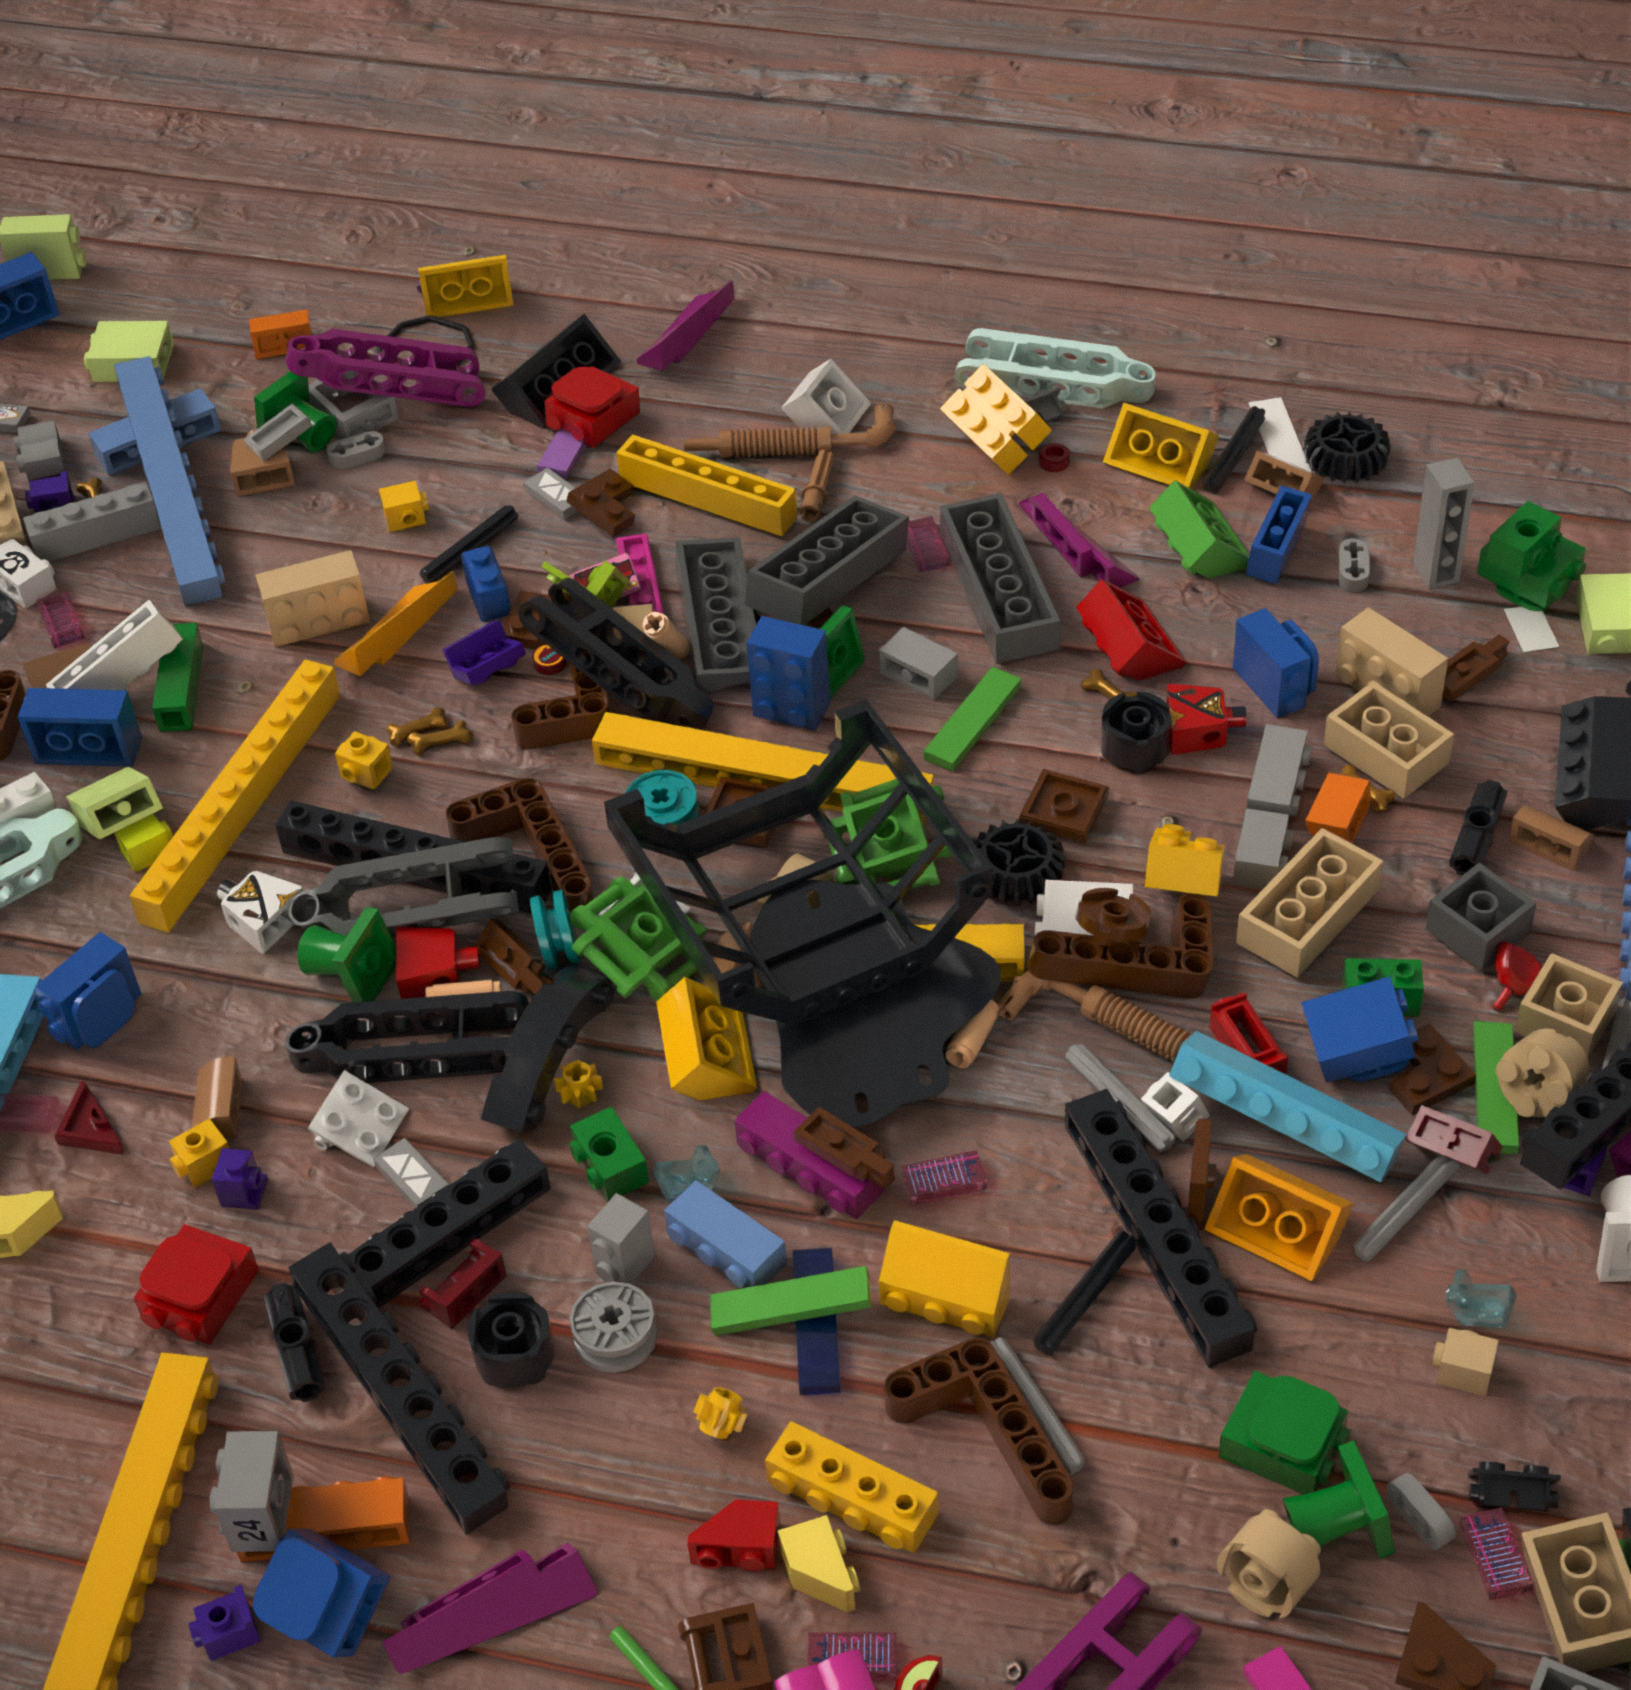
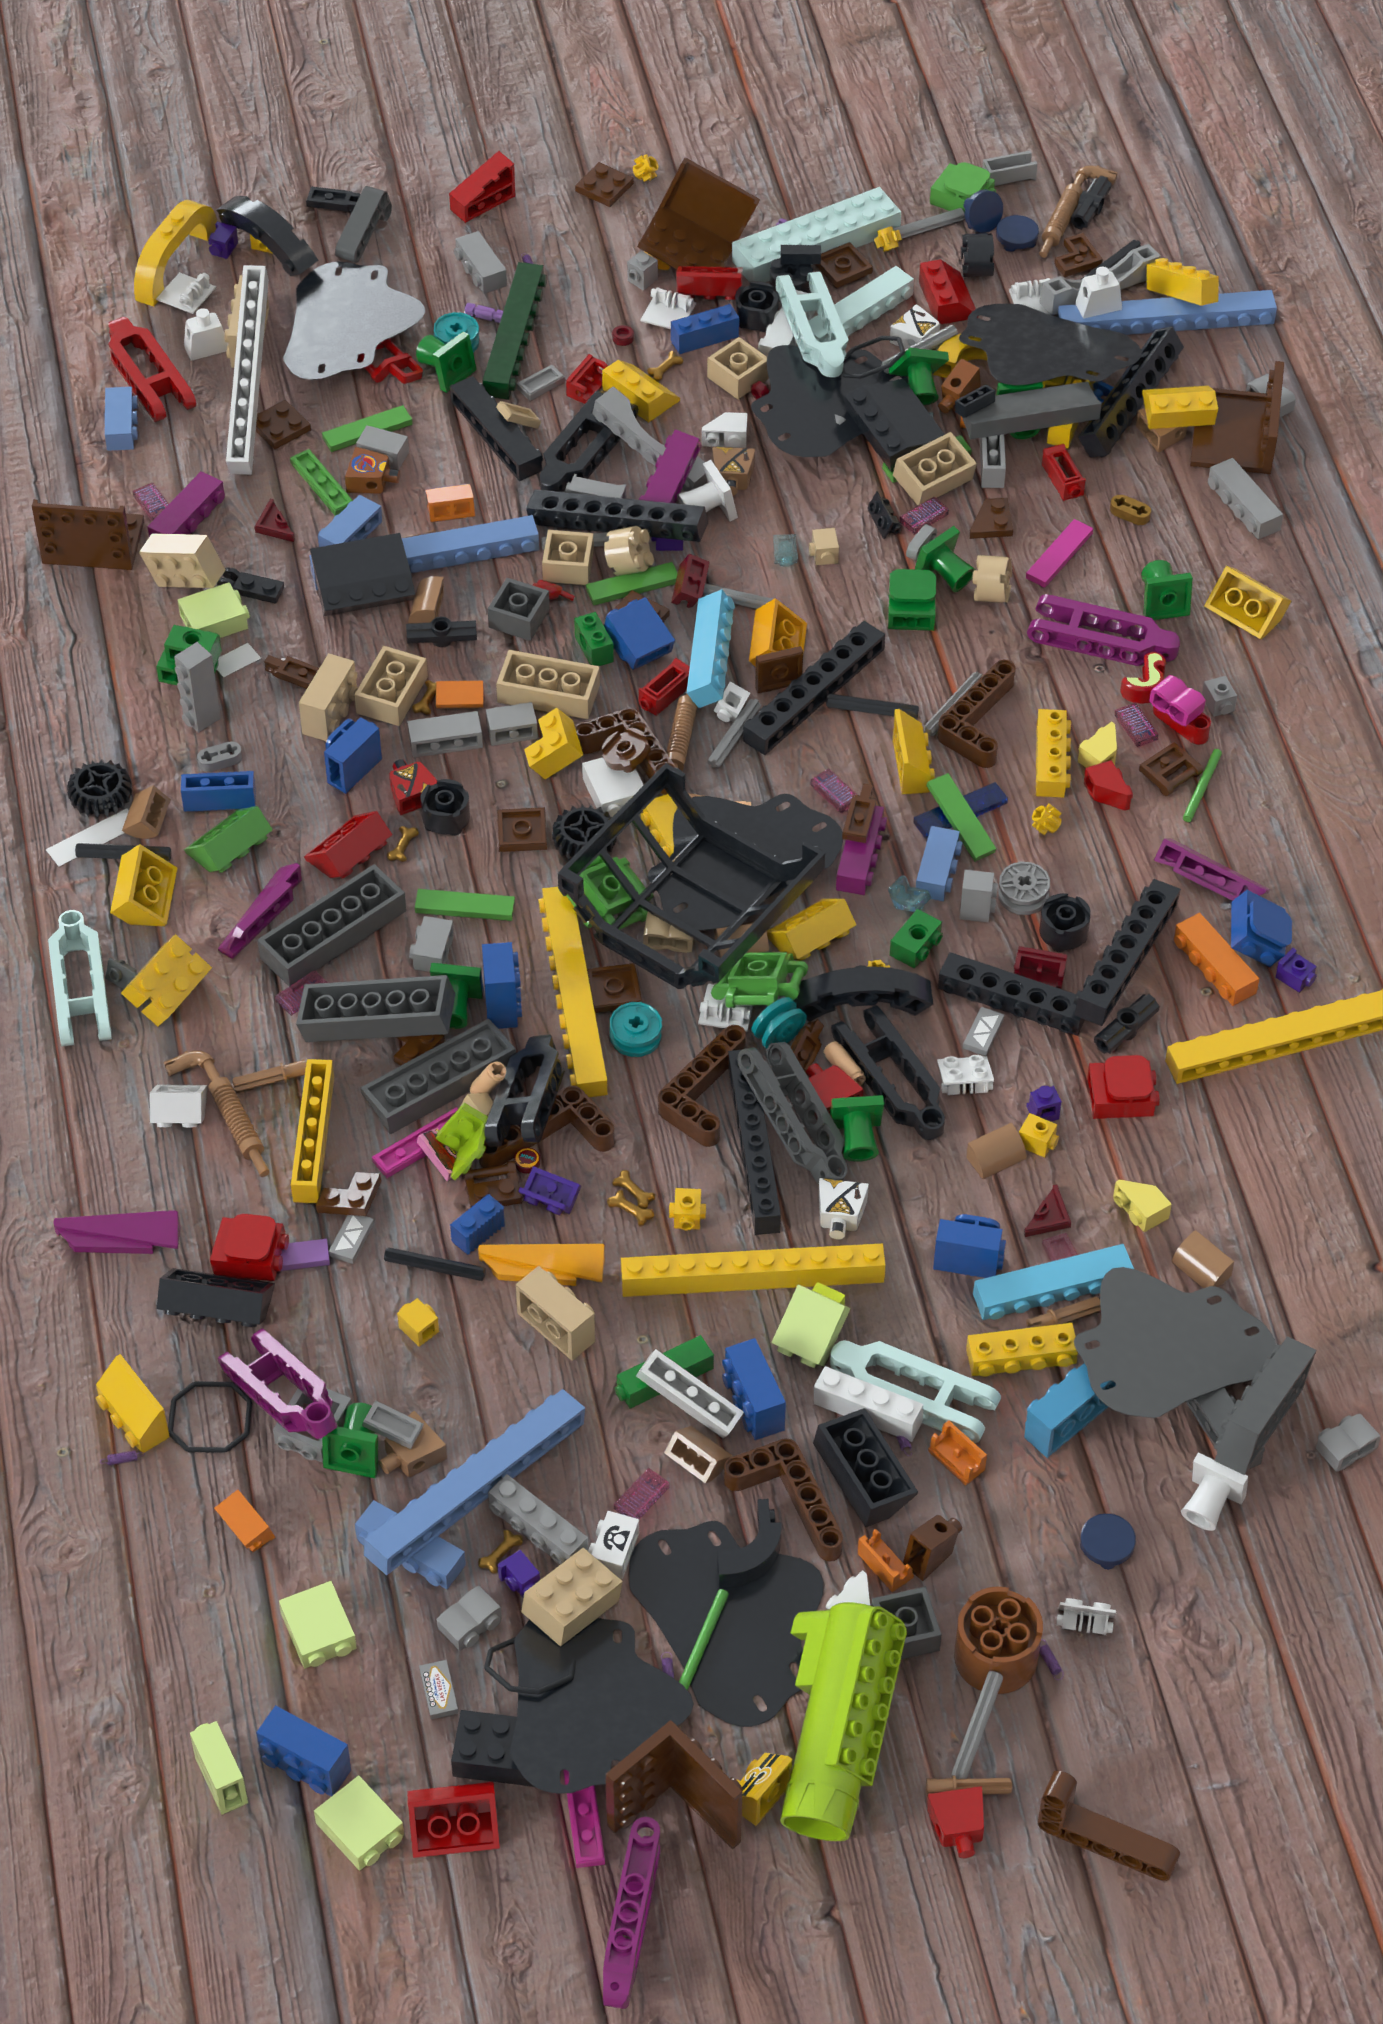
camera: 120 degrees left, 5 degrees up
(252, 1490) = (1238, 958): light grey brick -> none
(356, 450) = (364, 1389): light grey beam -> none

